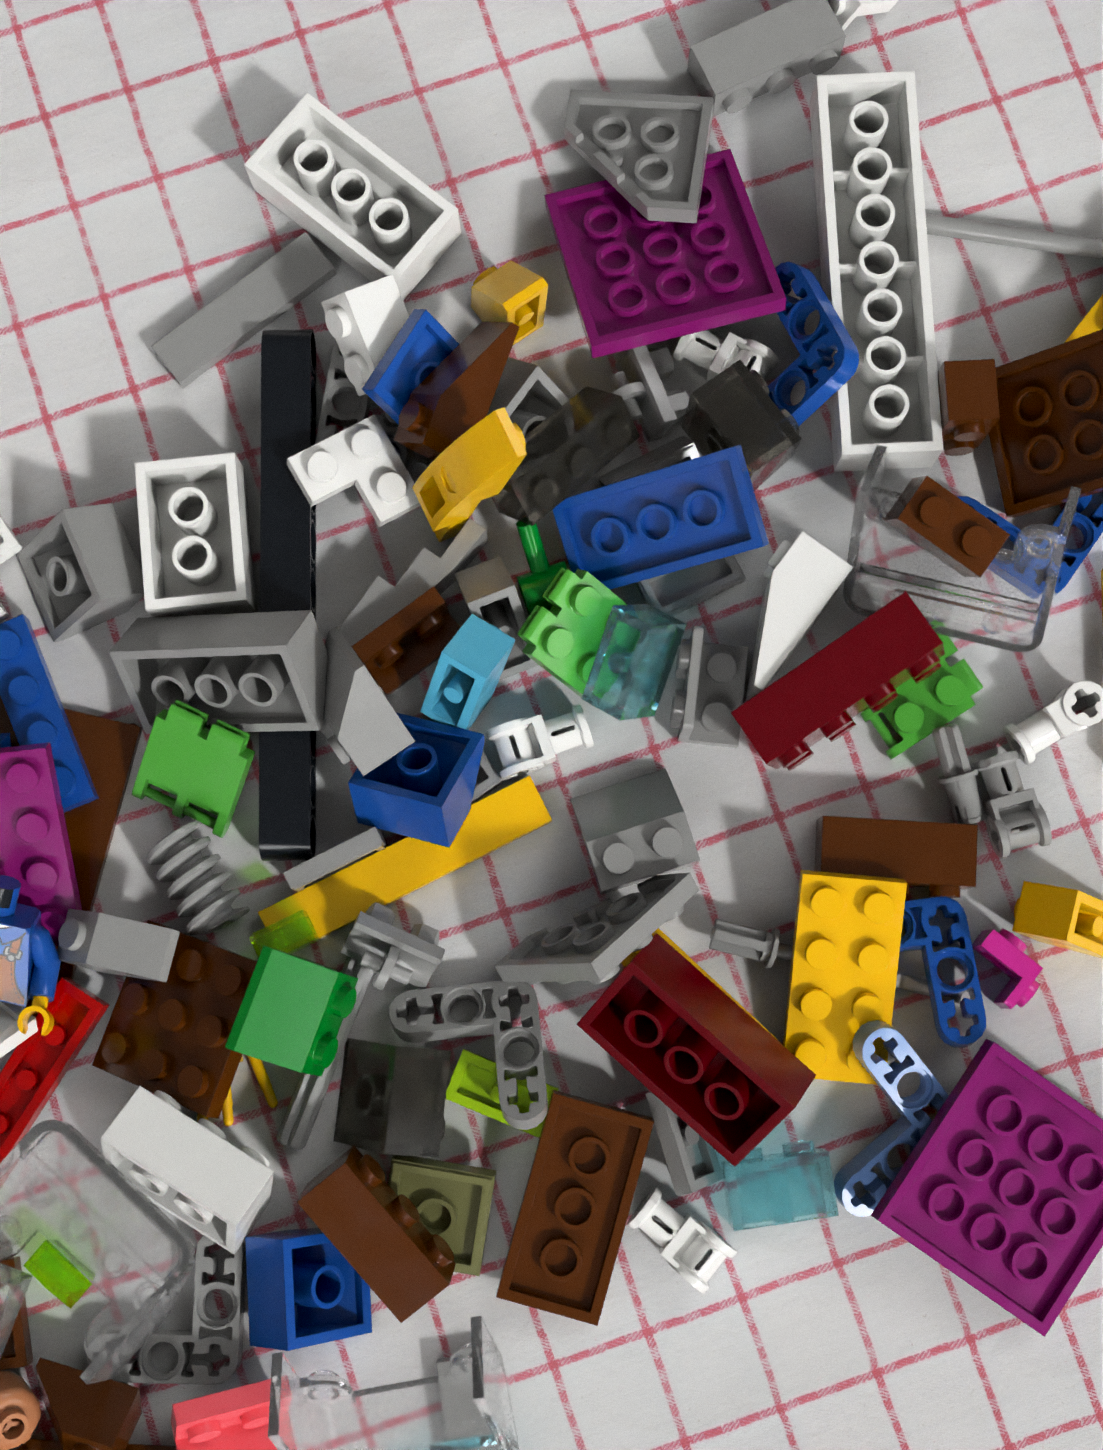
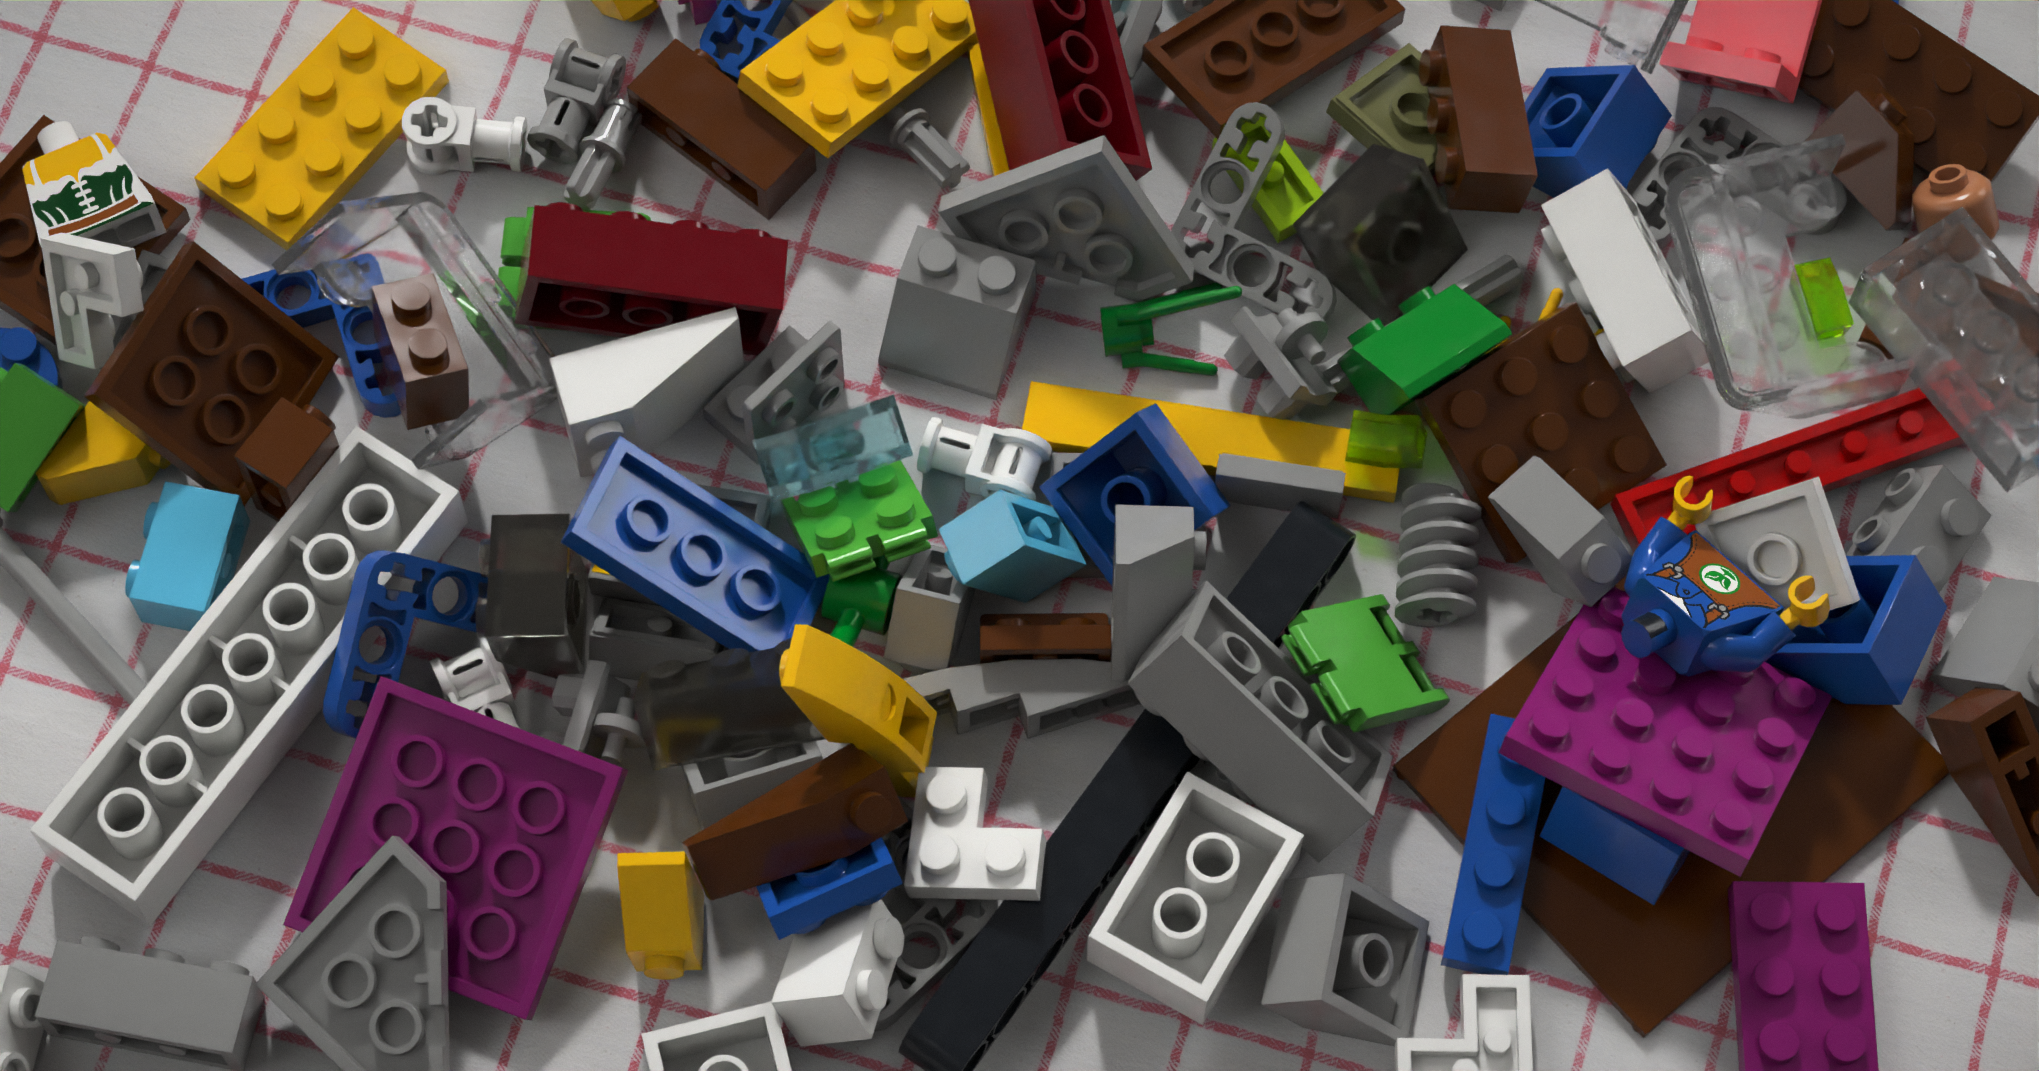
camera: 150 degrees left, 15 degrees down
(514, 905) = (1131, 327): none -> green plant
(980, 315) = (187, 555): none -> medium azure brick

